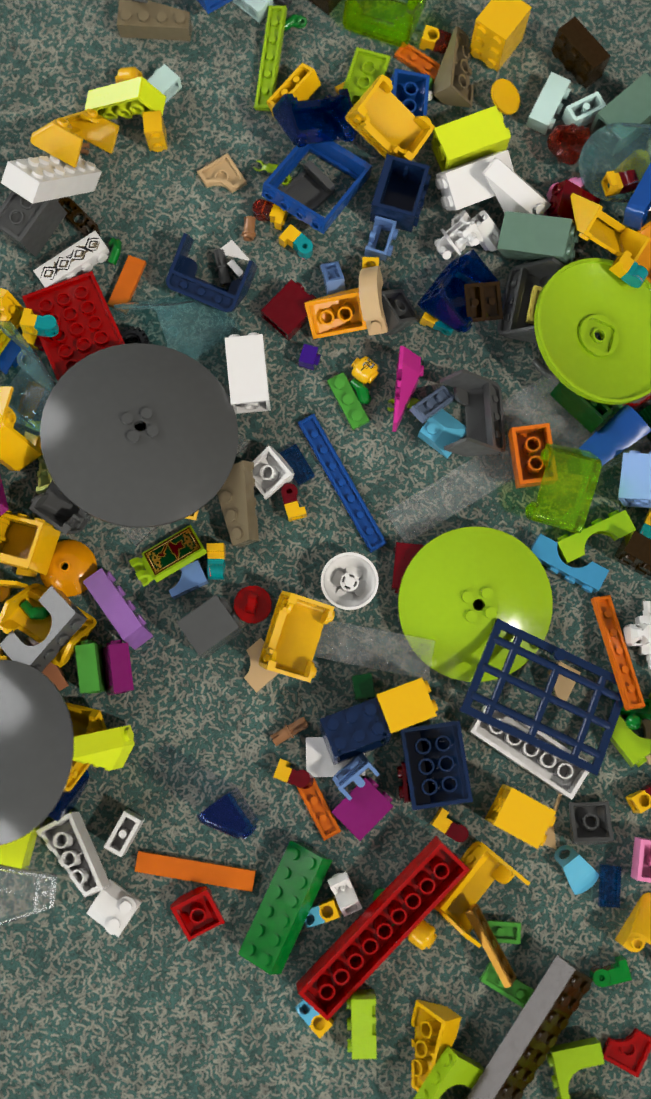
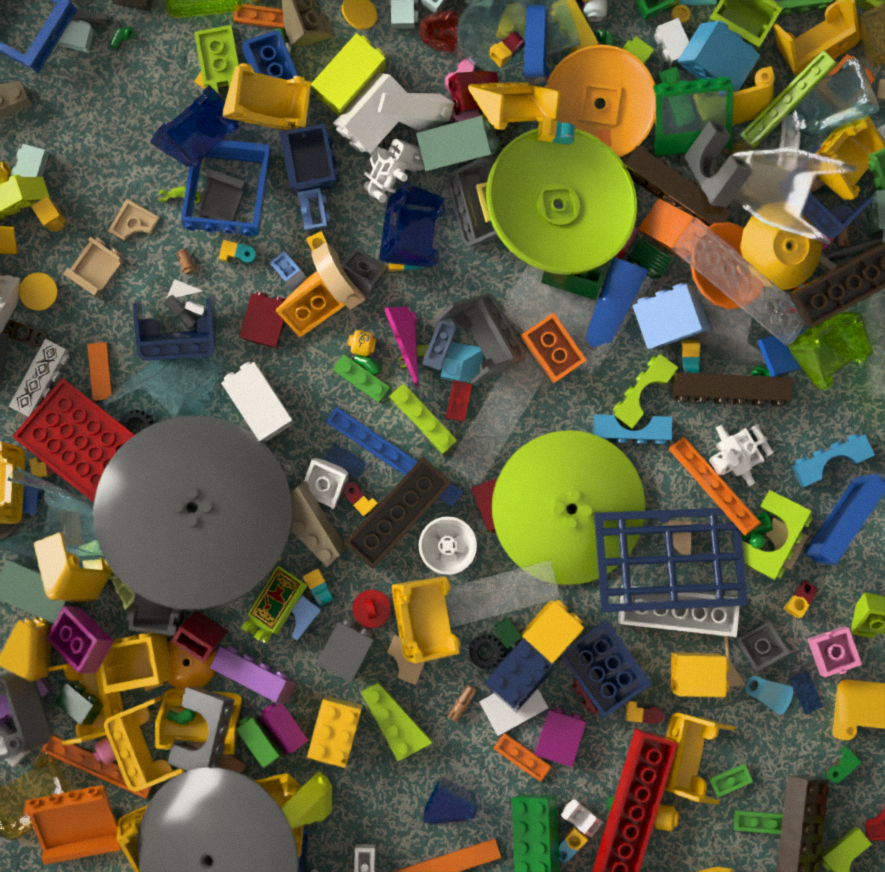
camera: 25 degrees left, 5 degrees up
(38, 325) = (43, 458): leg -> none
(88, 548) = (199, 636): none -> dark red brick
(111, 190) = (38, 291): none -> yellow piece
(116, 250) = (73, 346): green arm -> none
(161, 695) = (335, 731): none -> yellow container
(170, 195) = (95, 267): none -> tan panel
(220, 718) = (395, 723): none -> lime wedge
(270, 56) = (118, 84): lime tile -> none
(270, 212) = (192, 238): leg -> none
(288, 775) = (484, 742): leg -> none
(301, 83) = (159, 106): yellow brick -> none
(309, 357) = (305, 356): dark purple plate -> none
(320, 529) = (398, 512): none -> dark brown brick
(326, 687) = (486, 663): none -> black tyre
(352, 772) = (535, 712): medium blue window -> none
(380, 442) = (423, 419): none -> lime arch
(423, 462) = (458, 401): none -> red plate
(483, 301) = (438, 225): dark brown slope -> none
(491, 945) = (728, 796): pearl gold tile -> none
(565, 488) = (596, 364): clear neon green windscreen -> none

